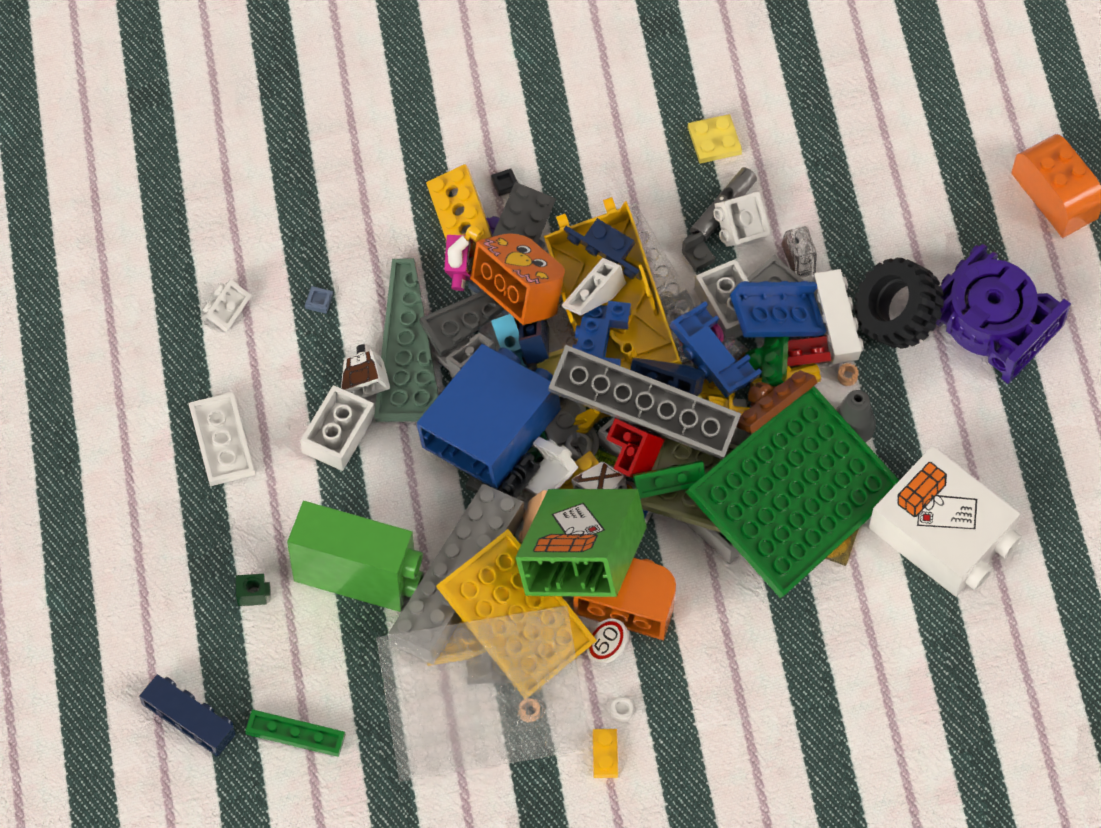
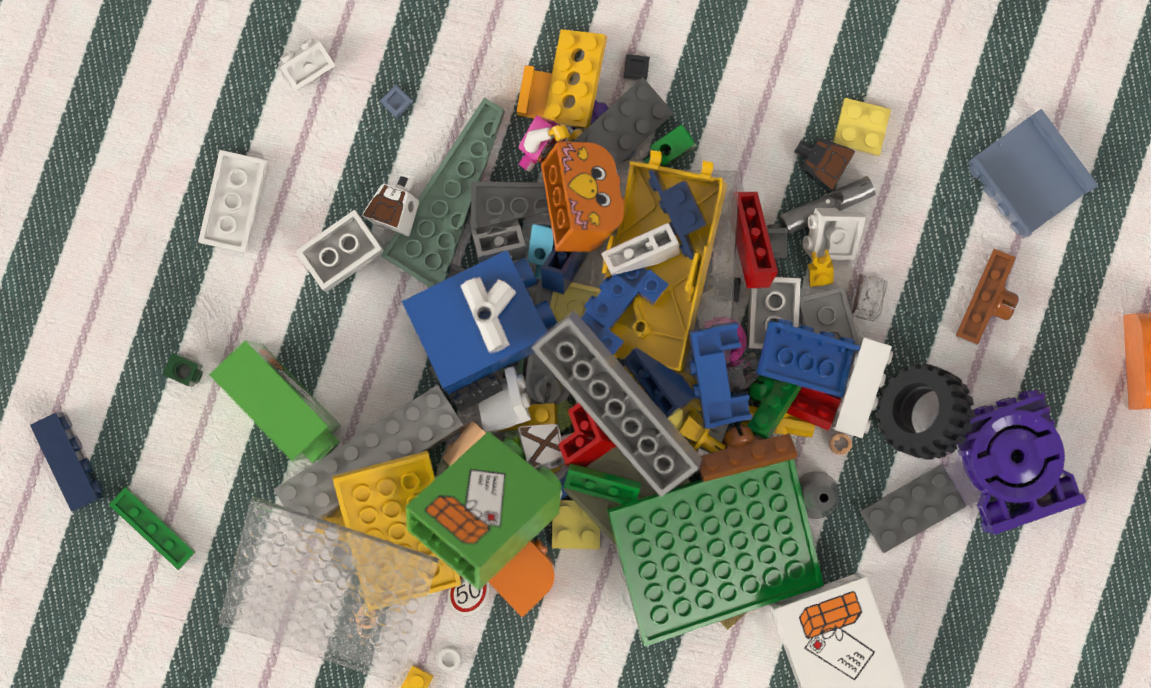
camera: 30 degrees right, 25 degrees up
(430, 238) = (533, 92): none -> light orange panel
(493, 387) = (493, 302): none -> white piece
(575, 208) = (680, 143): none -> green torso
(668, 544) = (574, 528): none -> light yellow plate
(683, 250) = (754, 243): none -> red brick
(700, 174) = (824, 161): none -> torso
(749, 251) = (821, 271): none -> yellow plate
(872, 106) = (1031, 174): none -> sand blue panel
(897, 208) = (989, 298): none -> dark orange plate
(938, 394) = (912, 508): none -> dark grey plate

